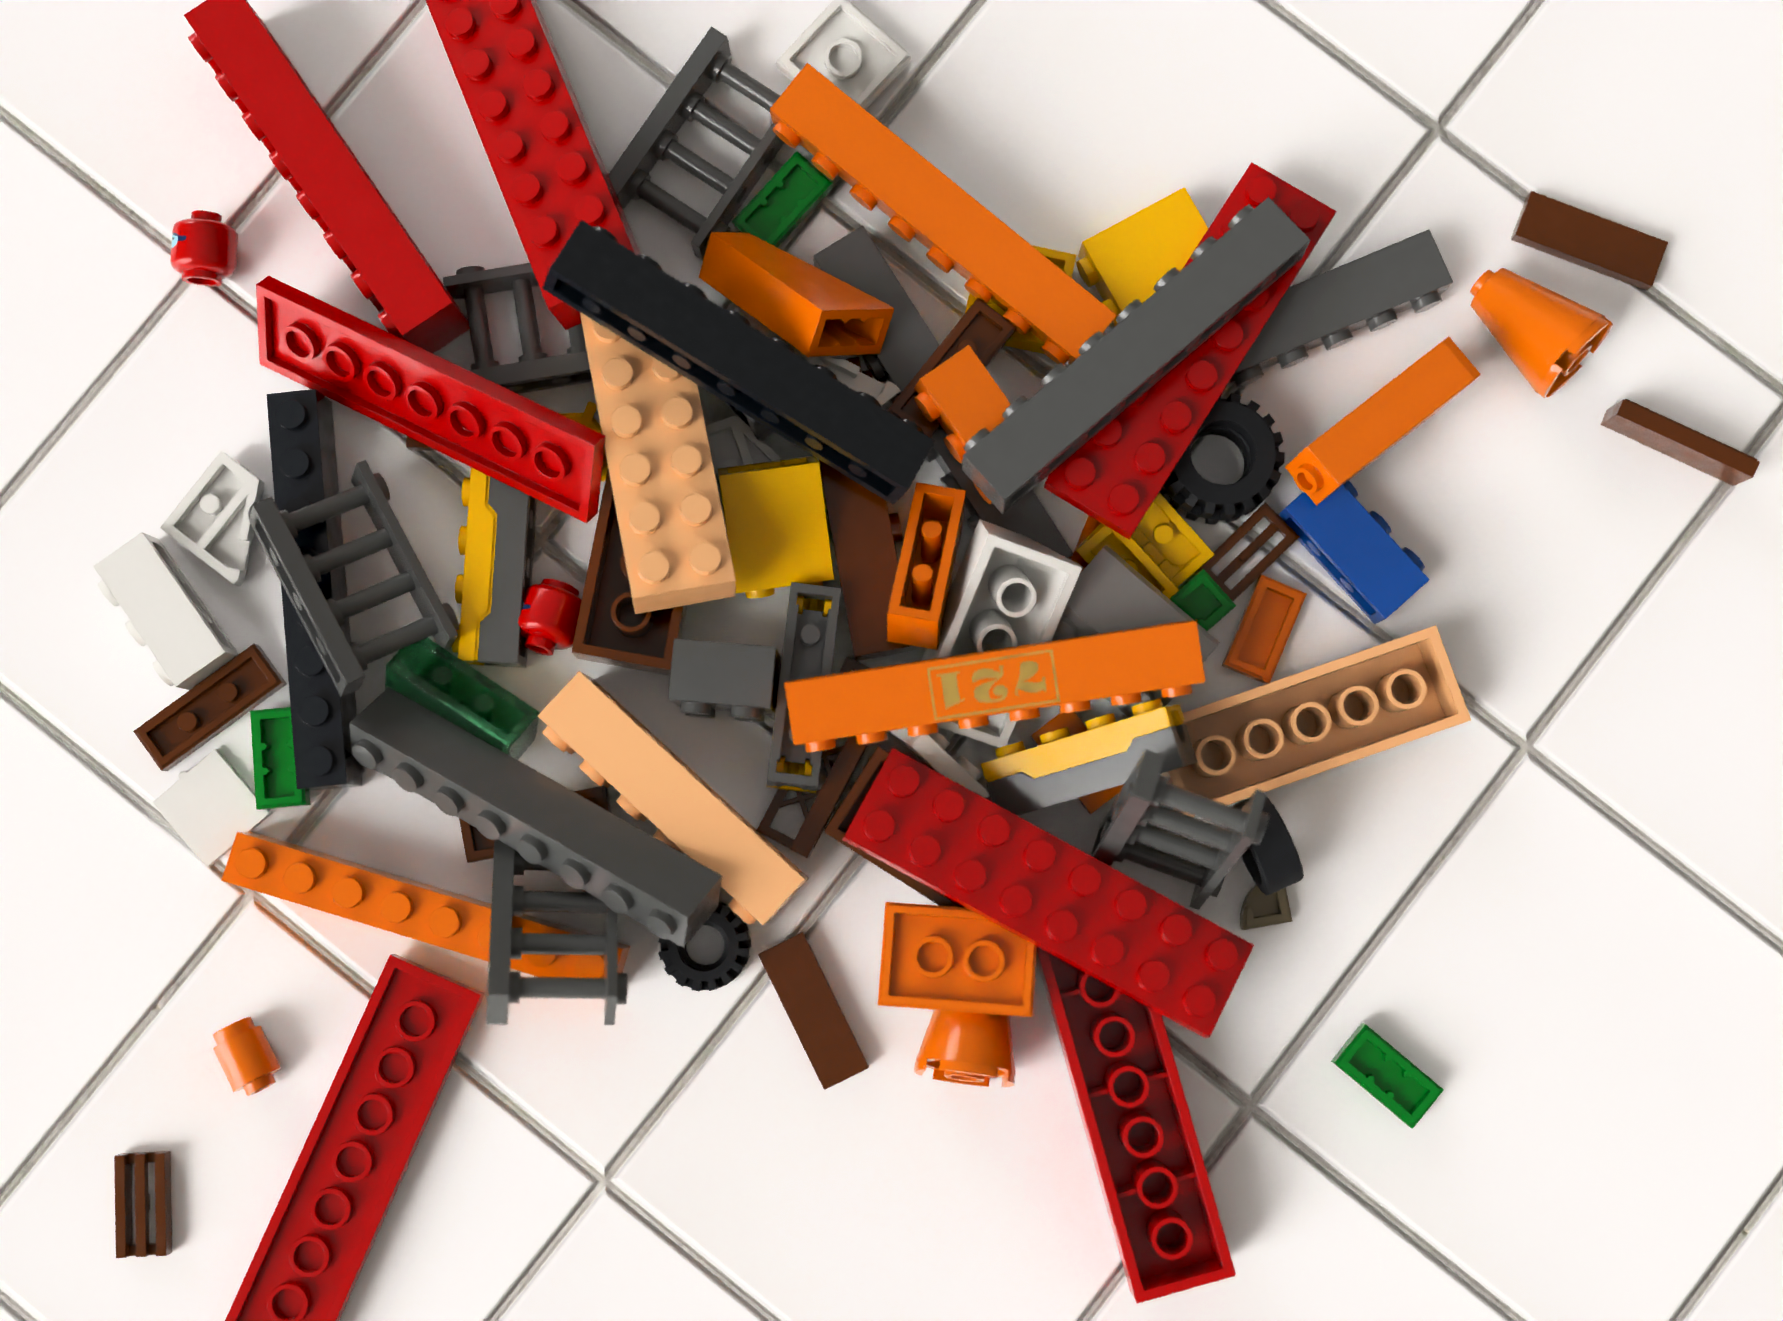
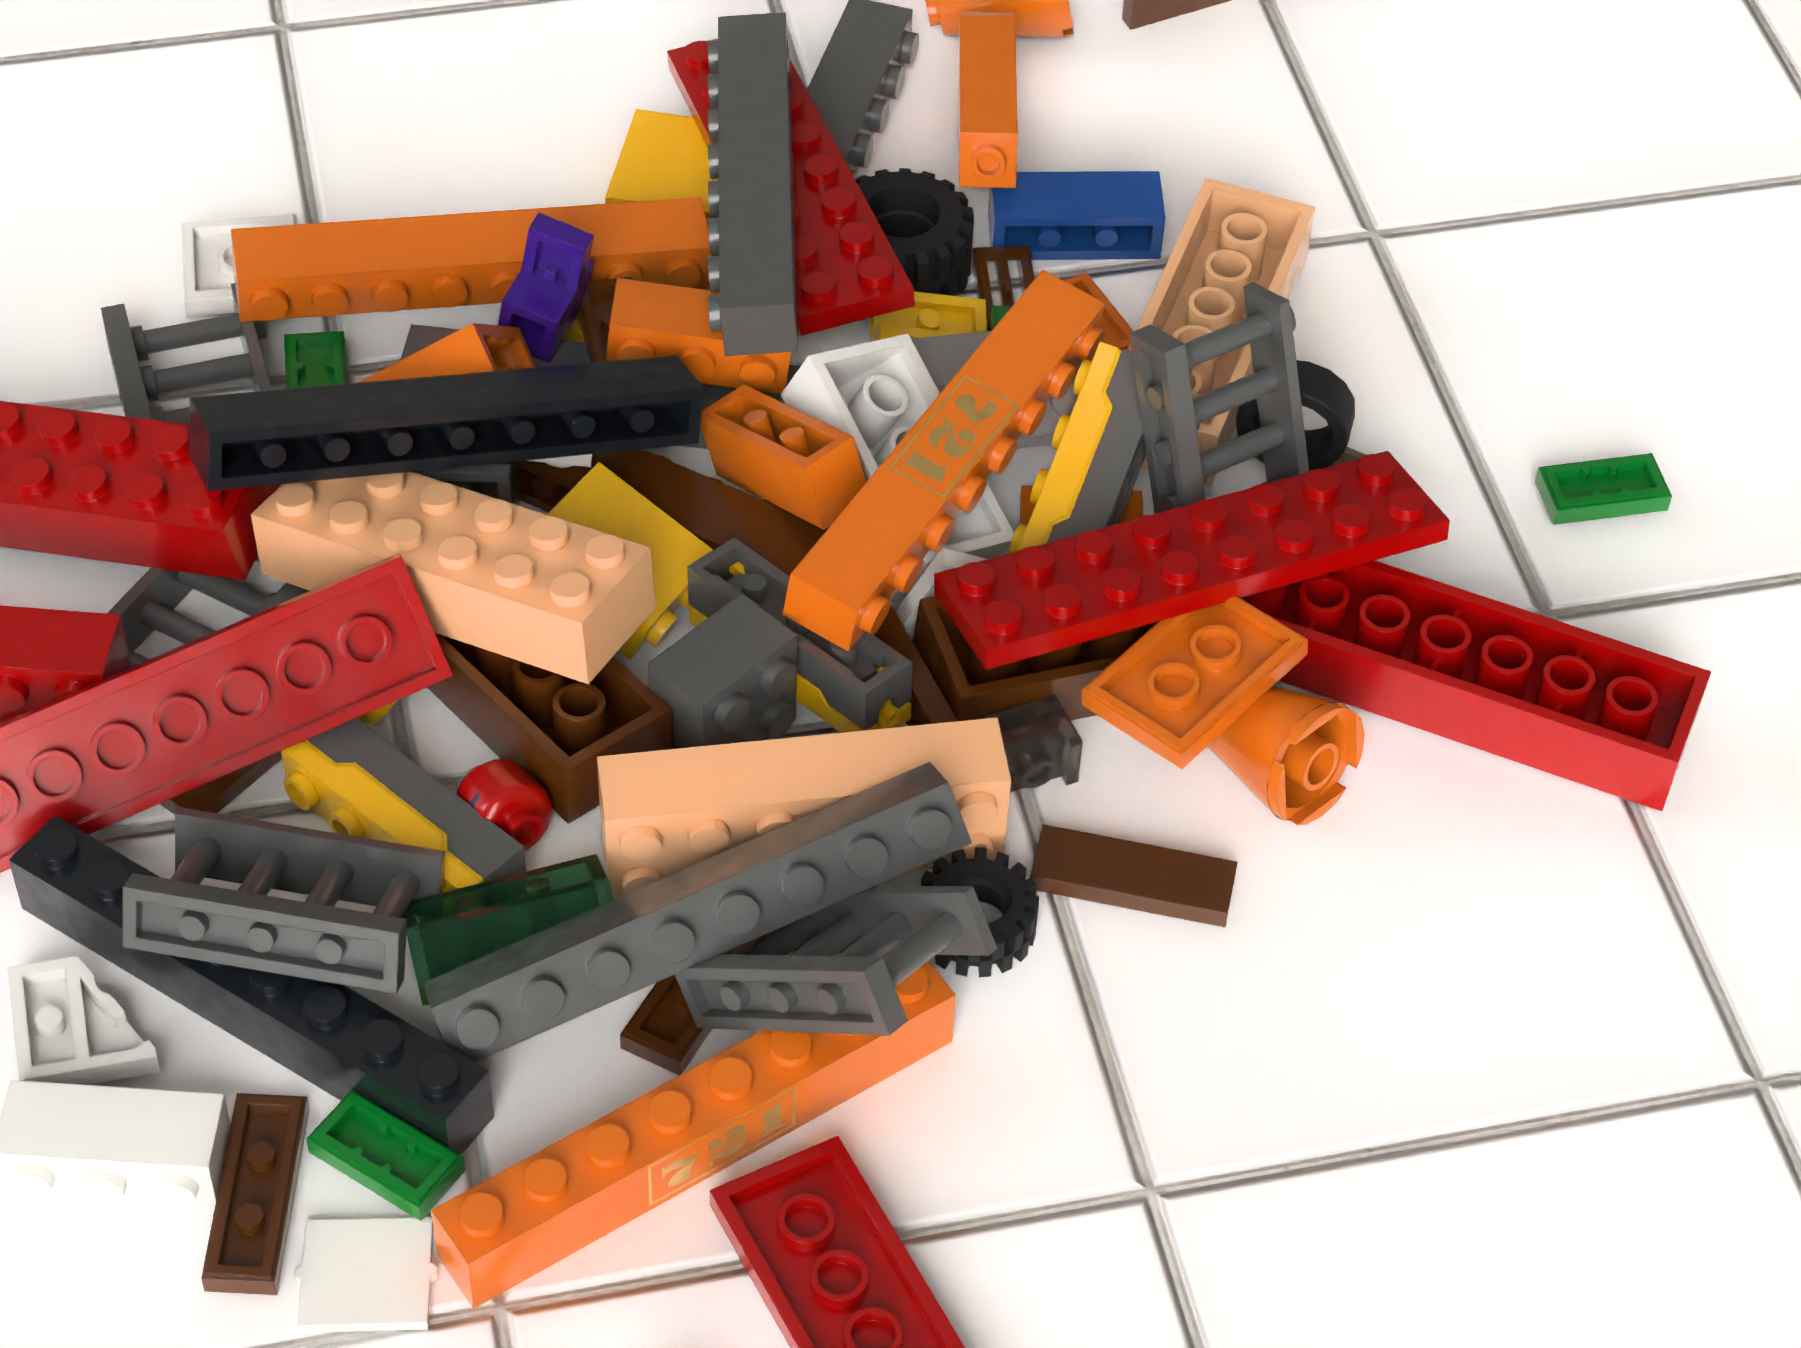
camera: 55 degrees left, 35 degrees down
(849, 880) = (1039, 743): none -> clear smoke brick
(934, 300) = (549, 285): none -> dark purple brick

